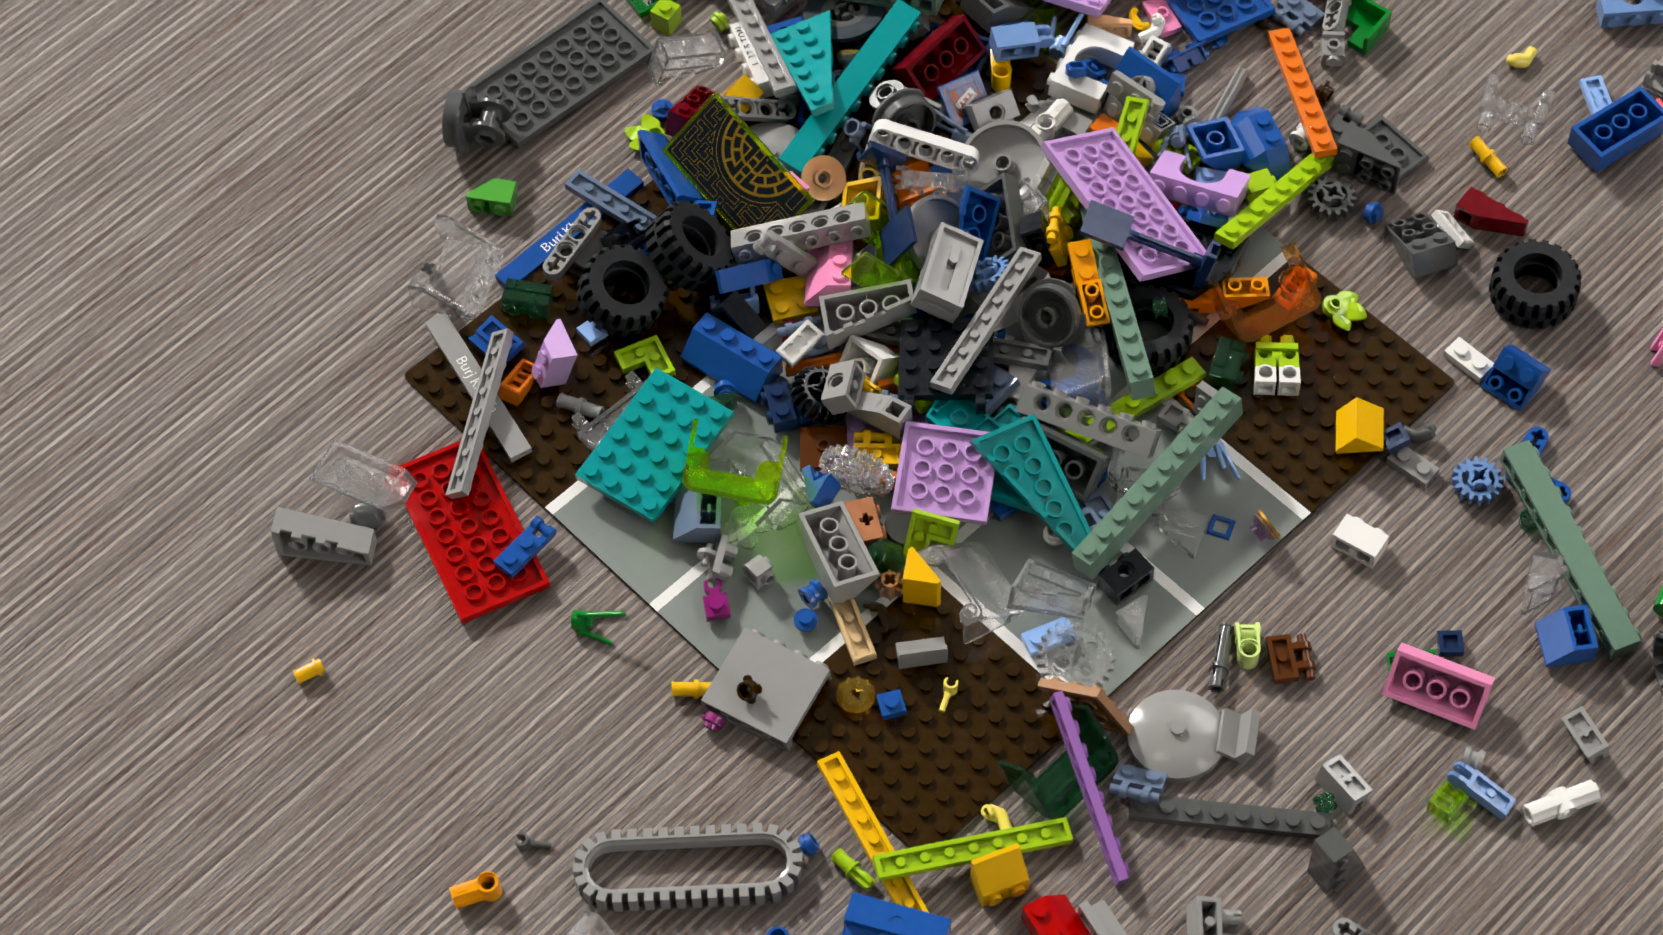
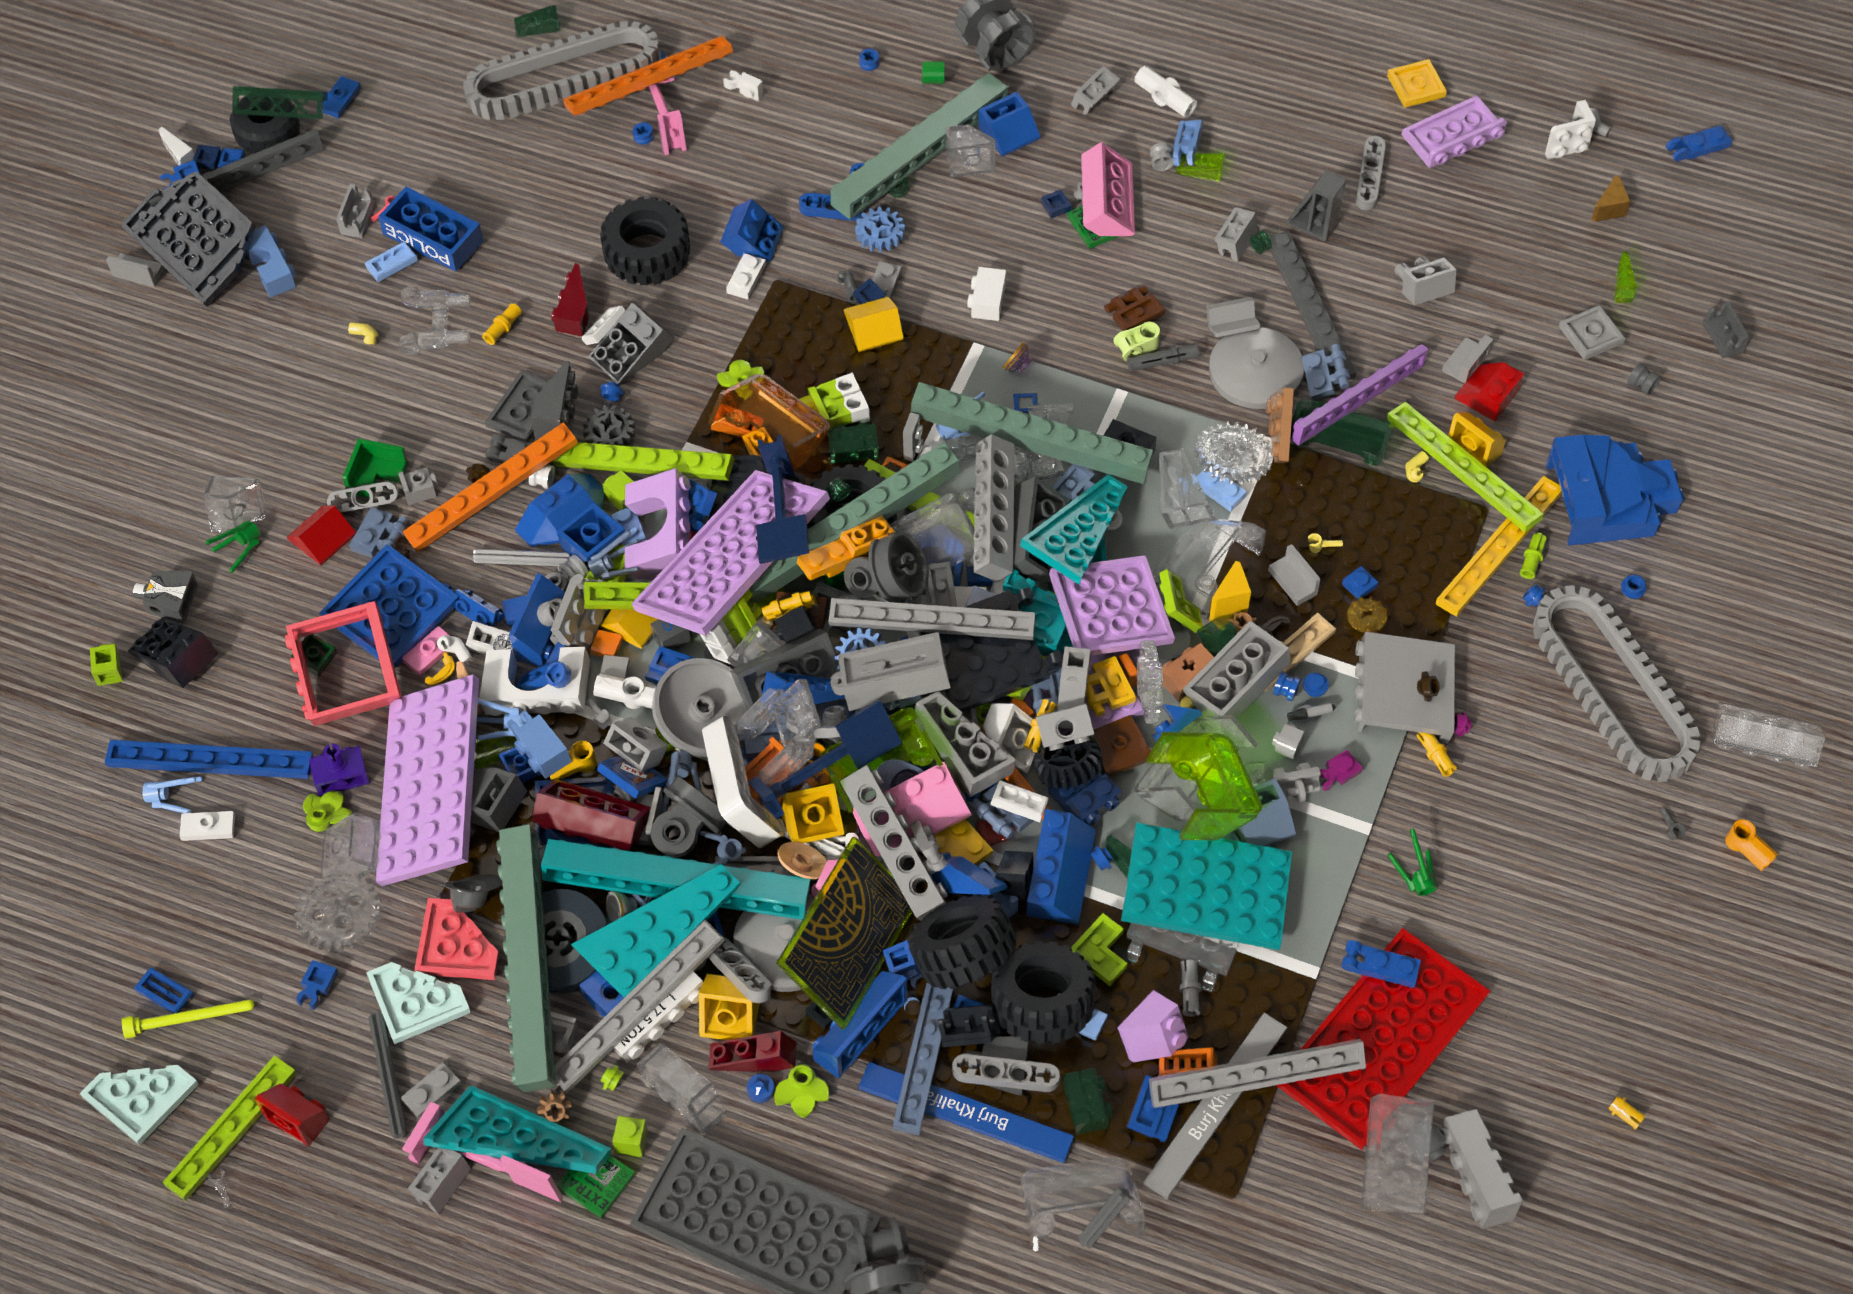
camera: 115 degrees left, 0 degrees up
(494, 197) = (962, 1207): bright green slope -> none
(783, 605) = (1308, 711): none -> piece
(1131, 620) = (1168, 424): clear slope -> none

